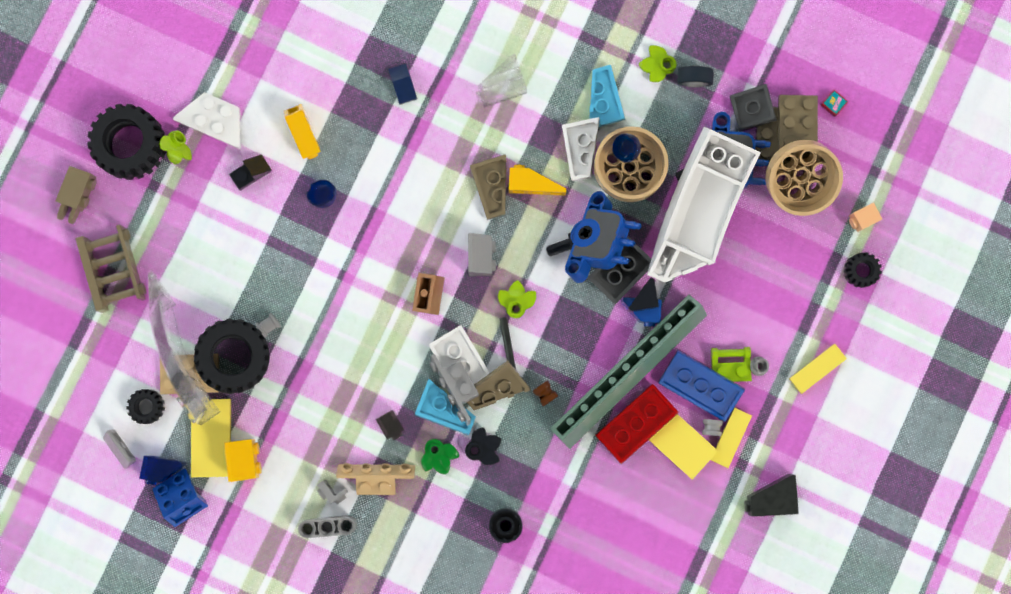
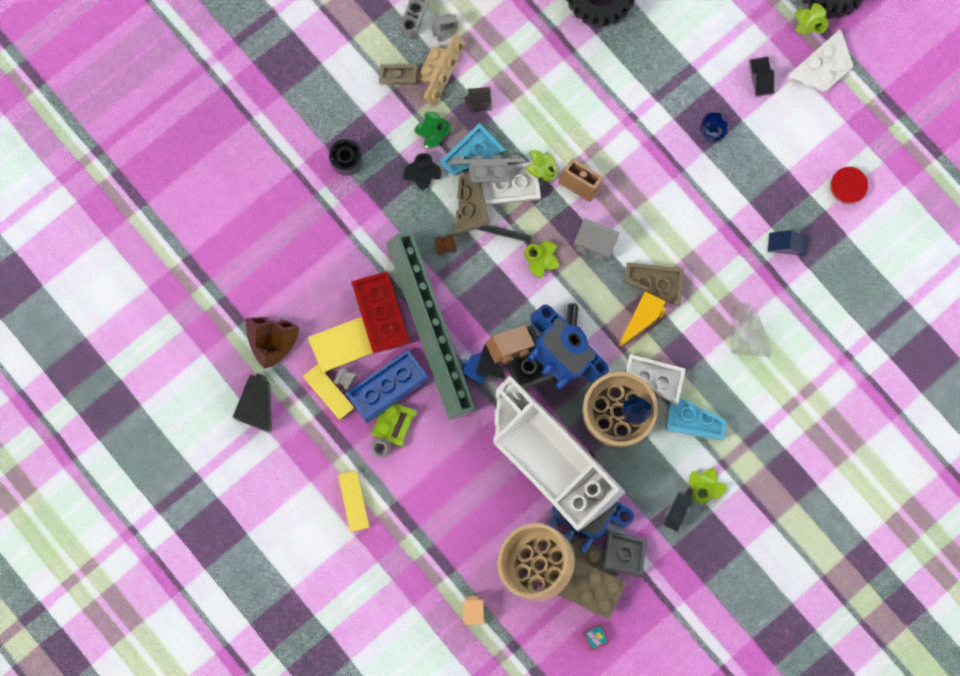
camera: 115 degrees right, 5 degrees down
(268, 325) = (615, 33): light grey bush -> none
(302, 132) = (780, 134): yellow slope -> none
(322, 50) = (849, 185): none -> red tile
(399, 513) = (398, 74): none -> dark tan plate
(426, 338) = (542, 166): none -> lime plate
(619, 286) = (510, 344): none -> medium nougat brick
(708, 514) = (270, 339): none -> reddish brown brick
(872, 264) = (425, 598): black tyre -> none

